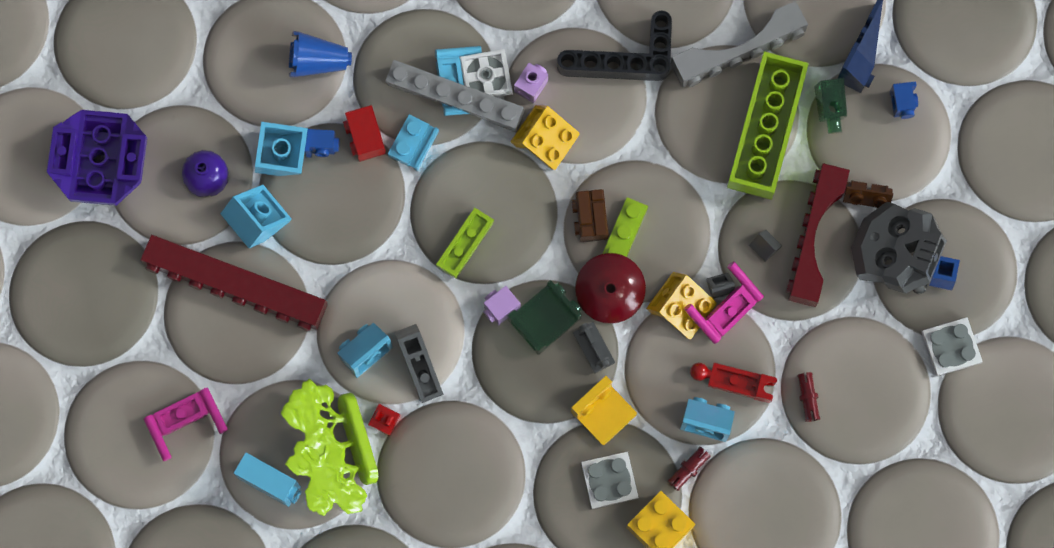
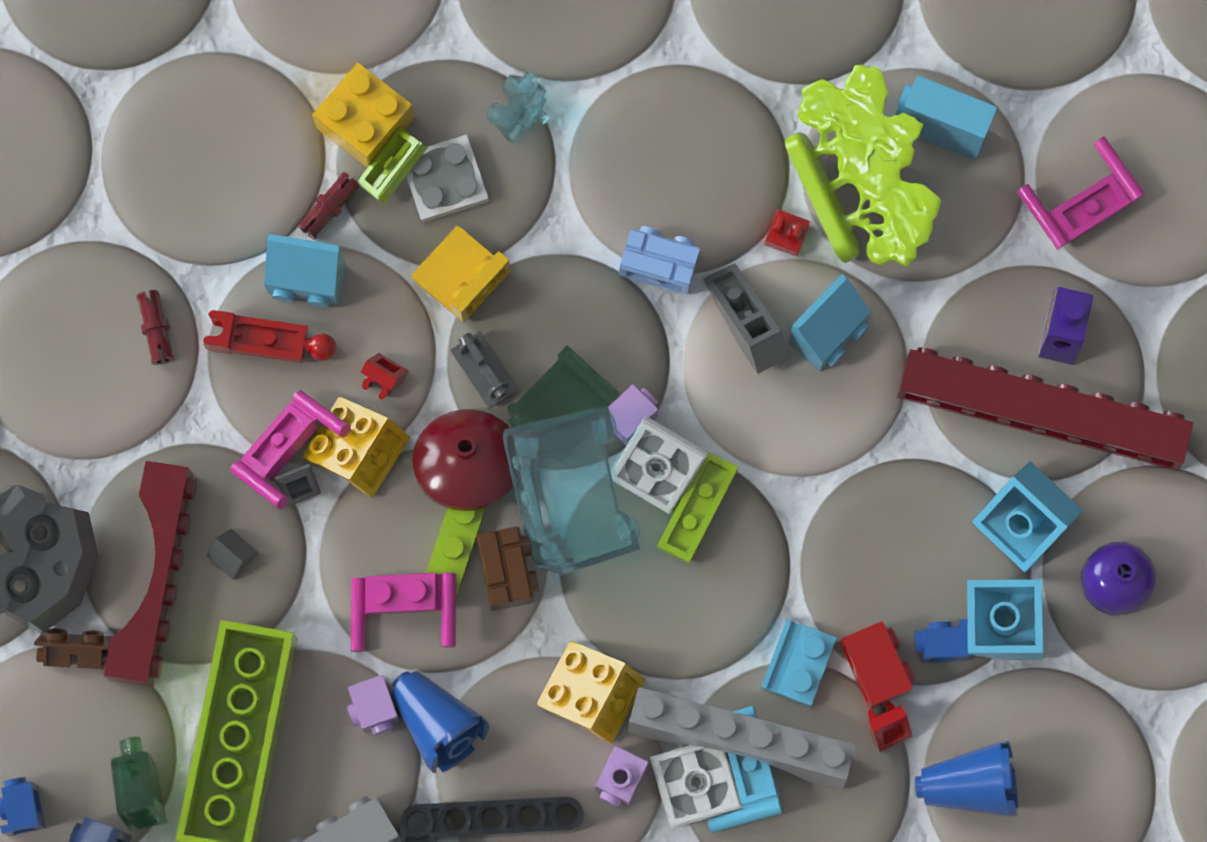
camera: 175 degrees right, 0 degrees up
(210, 336) = (1065, 322): none -> dark purple torso
(362, 95) = (889, 727): none -> red tile
(471, 406) = (659, 260): none -> light blue brick
(488, 268) = (657, 464): none -> white piece
(545, 252) = (568, 491): none -> clear light blue windscreen
(551, 520) = (522, 108): none -> clear light blue hips
(629, 502) = (395, 167): none -> lime tile
(644, 126) = (437, 721): none -> blue cone
(658, 204) = (403, 595): none -> dark pink plate
(659, 349) = (384, 372): none -> red tile
(682, 139) = (372, 706): none -> lavender brick

